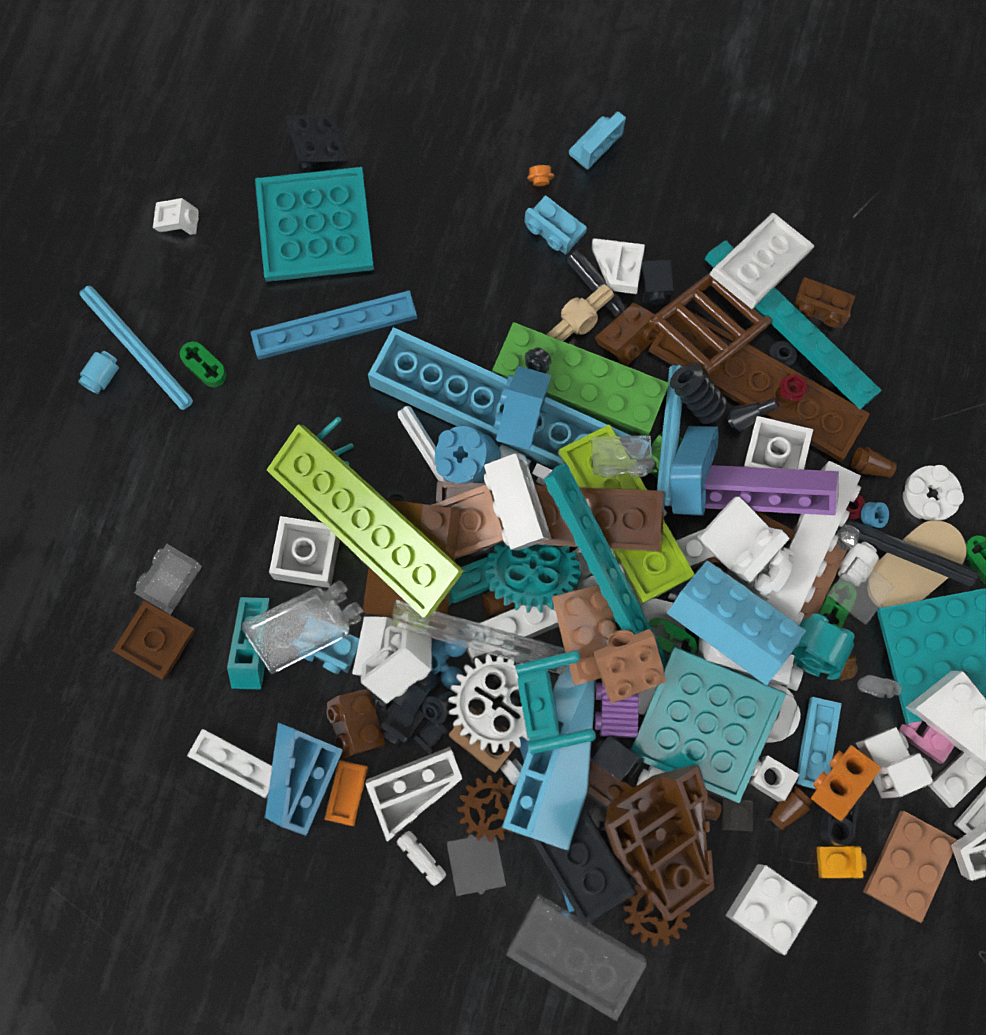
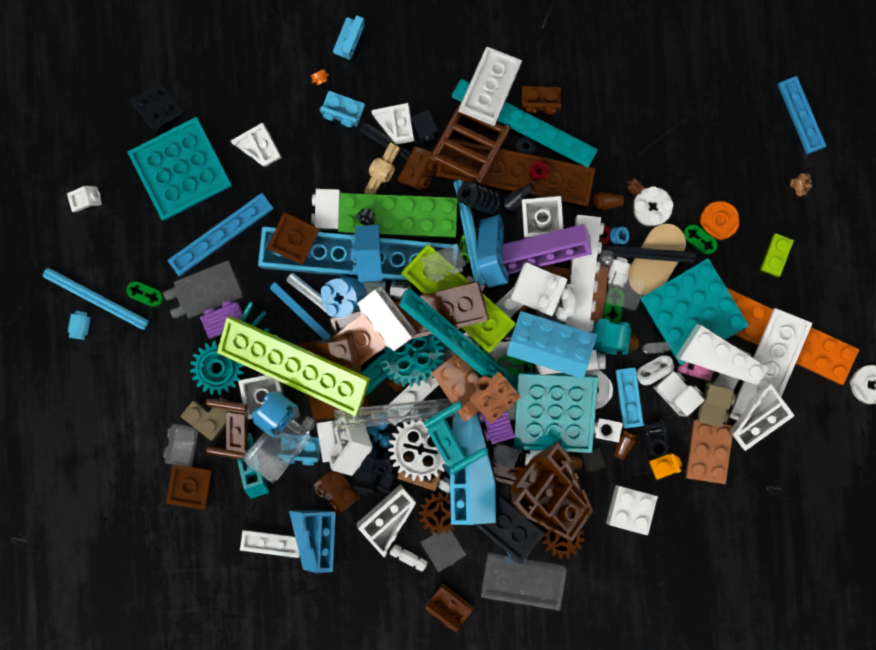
camera: 20 degrees left, 10 degrees up
(220, 561) = (207, 422): none -> dark tan brick
(240, 495) = (206, 374): none -> teal gear
(249, 582) = (235, 429): none -> reddish brown plate
(280, 426) = (214, 320): none -> medium lavender brick
(282, 388) = (204, 290): none -> clear tile
(311, 574) = (274, 413): none -> dark azure brick
(346, 793) = (347, 535): orange tile -> none
(399, 457) = (300, 311): none -> dark azure tile
(428, 230) = (258, 145): none -> white wing
(429, 355) = (293, 238): none -> reddish brown plate
(453, 955) = (449, 607): none -> reddish brown bracket
(487, 338) = (326, 209): none -> white brick
(846, 783) = (655, 419): orange brick -> none
(868, 718) = (655, 370): none -> white plate
(916, 458) = (635, 187): none -> reddish brown plate
(941, 800) = (717, 400): none -> dark tan brick

